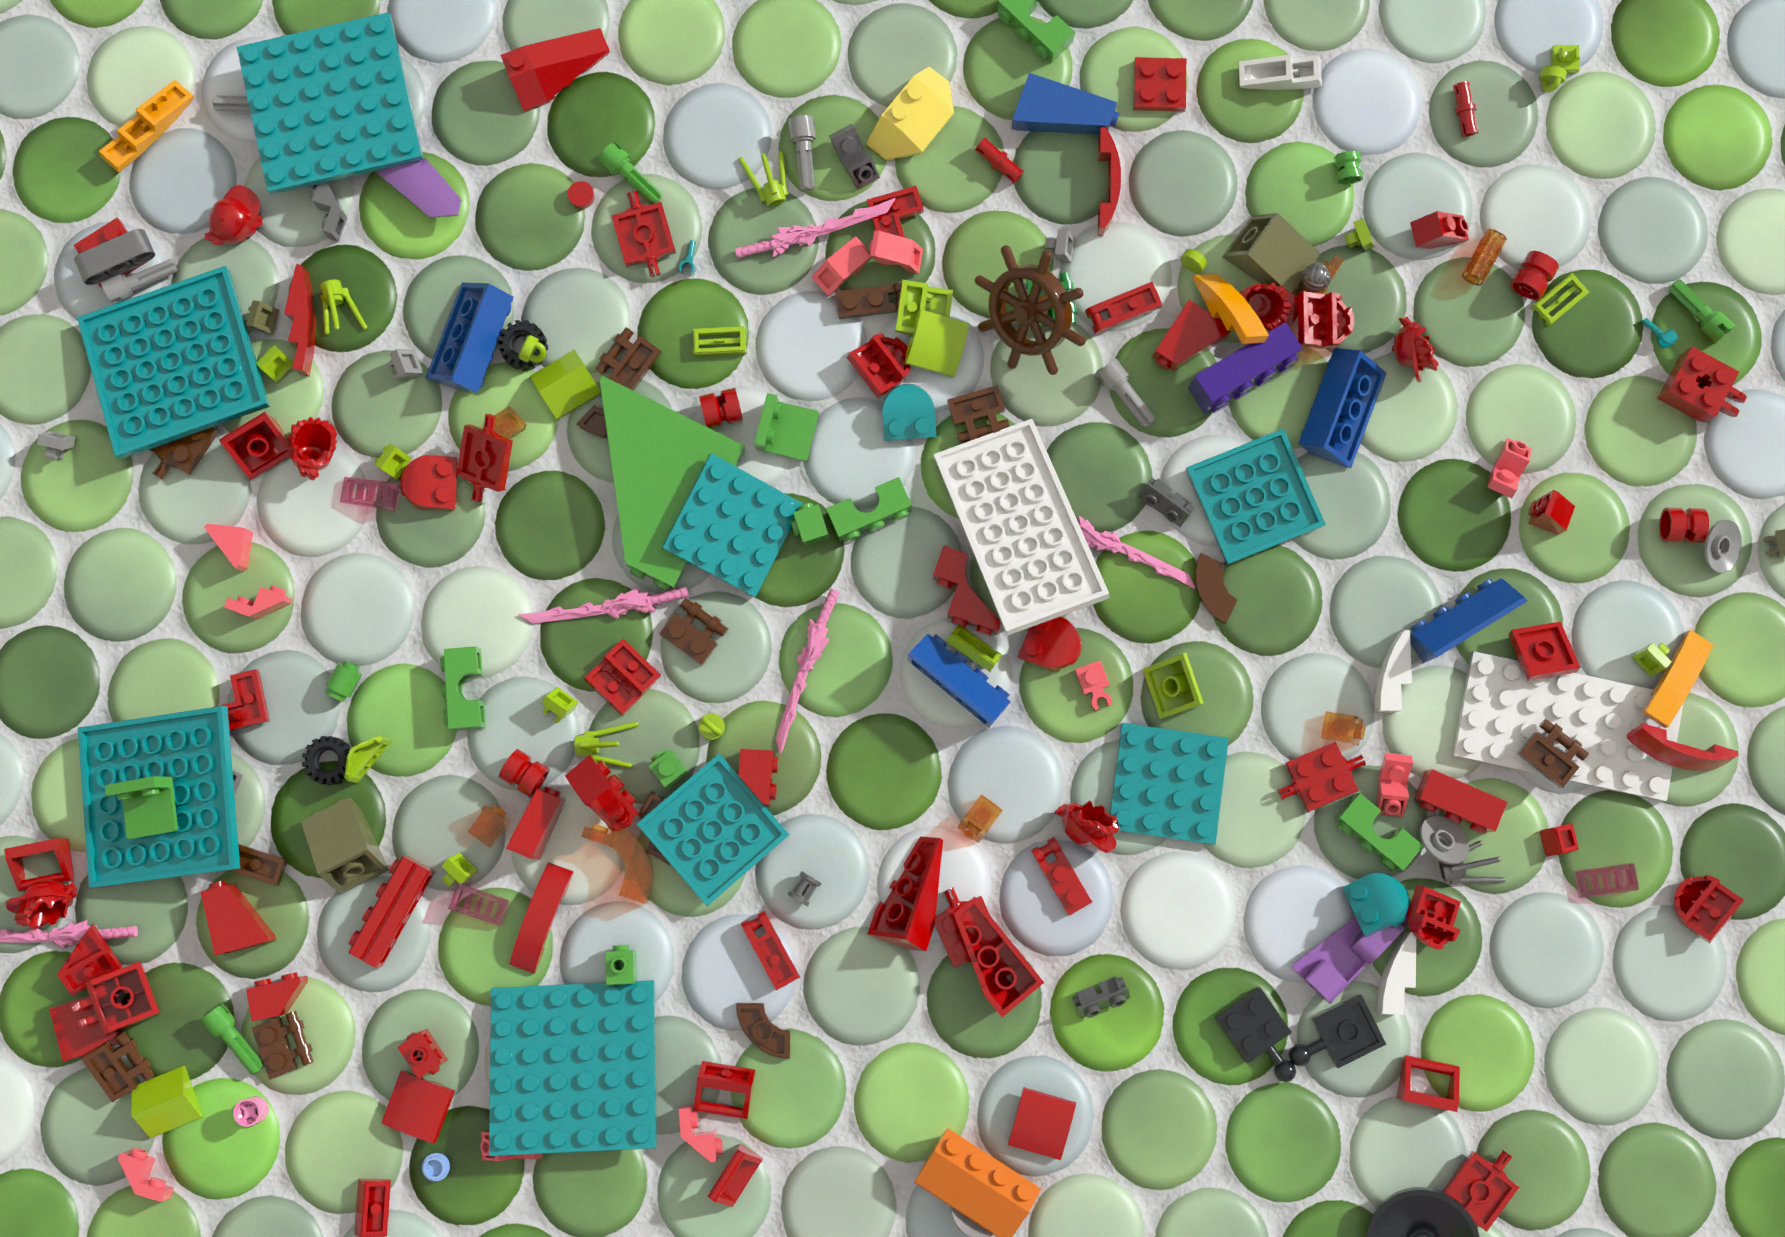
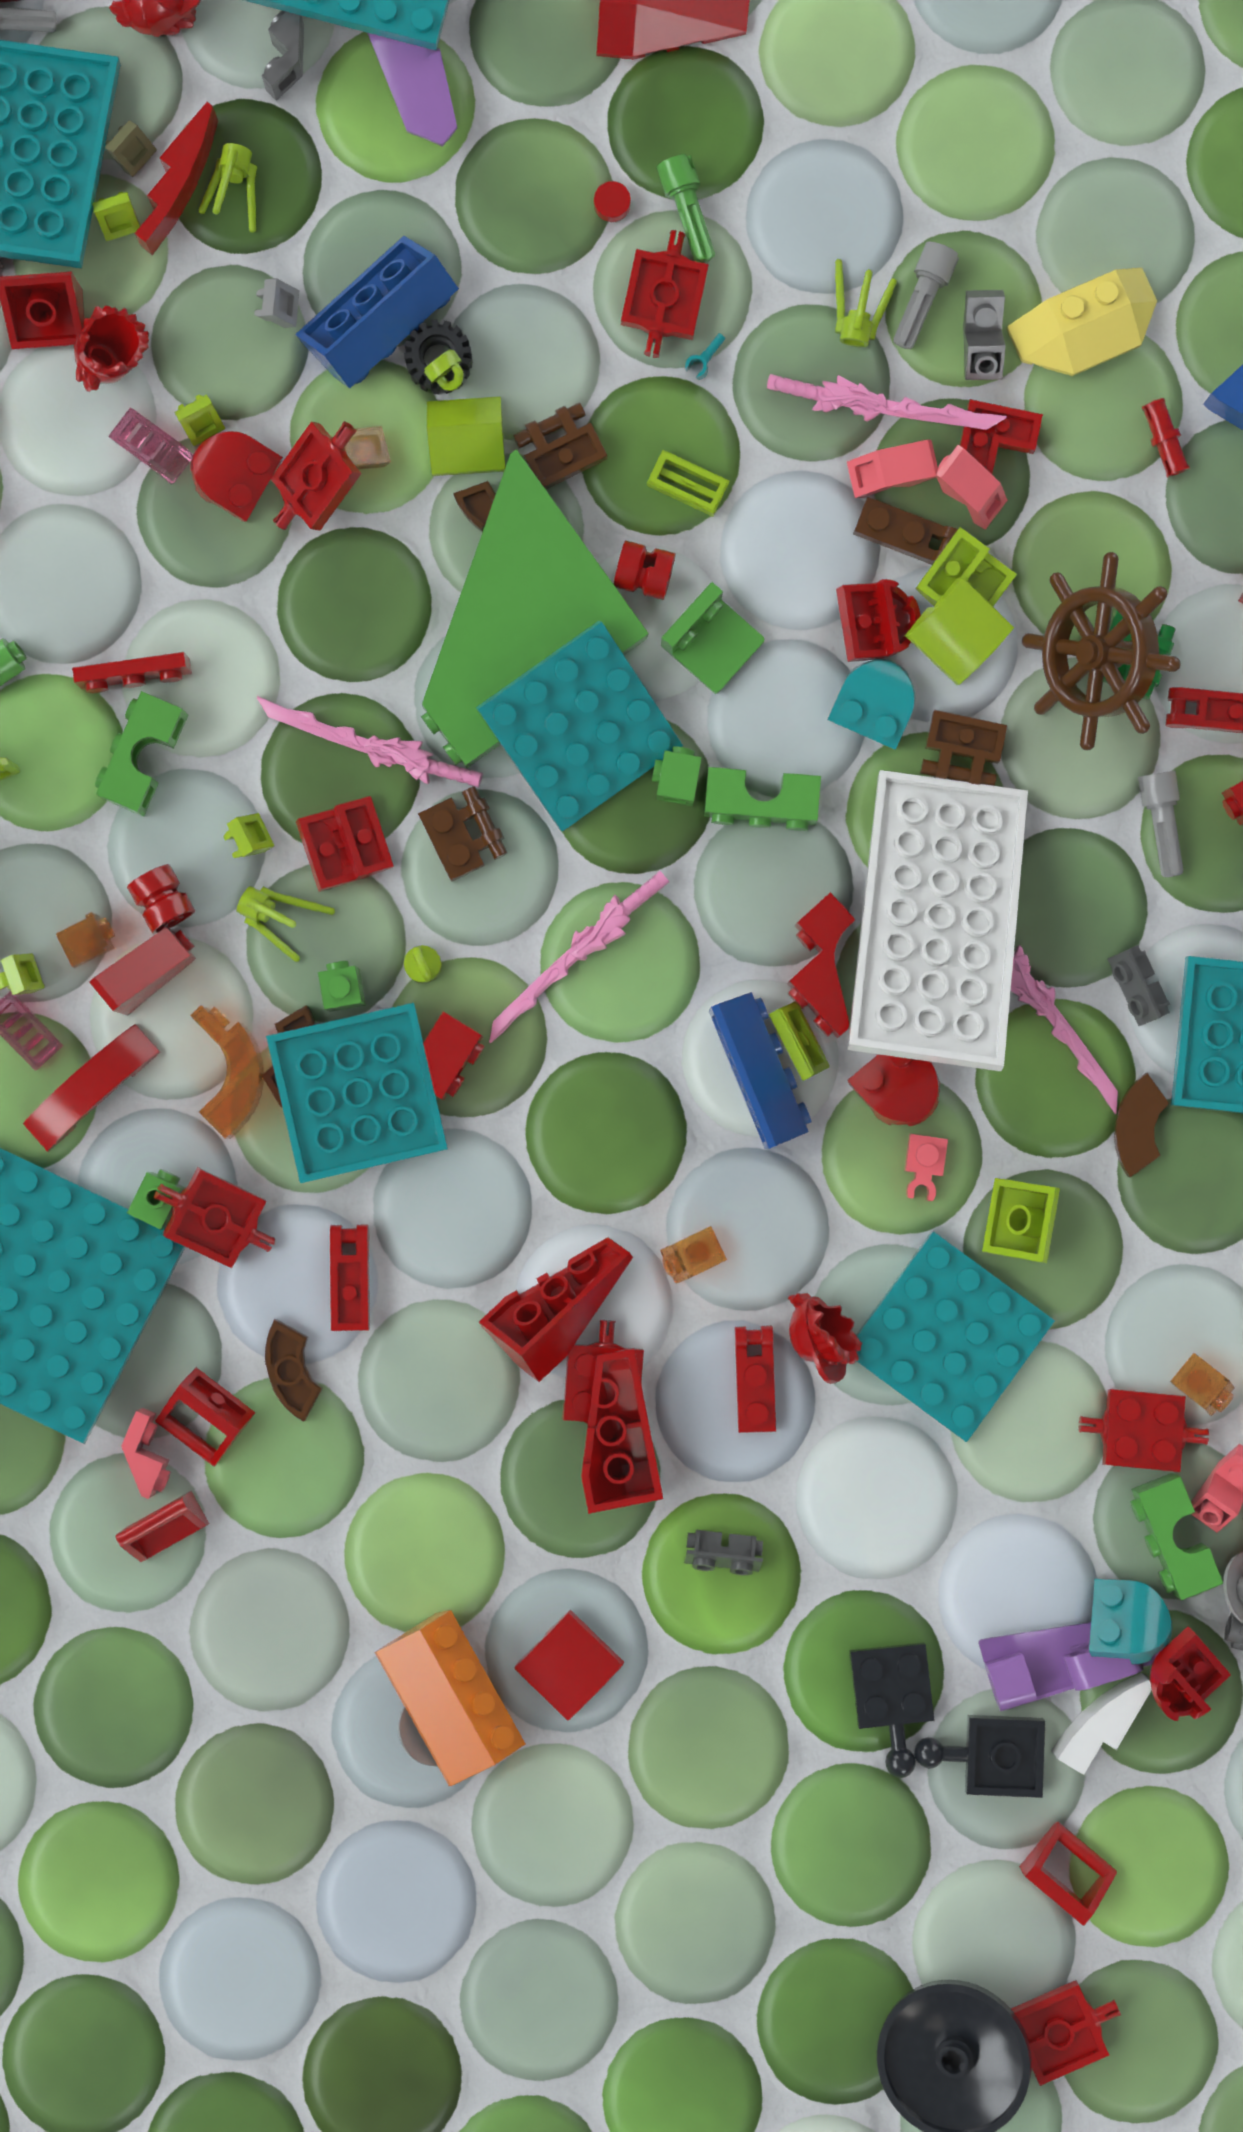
camera: 25 degrees right, 5 degrees up
(431, 640) = (132, 672): none -> red plate
(603, 793) = (244, 976): red hinge -> none
(664, 957) = (214, 1217): none -> red plate
(804, 888) = (431, 1225): flat silver bush -> none
(1062, 245) = (1185, 590): light grey tile -> none

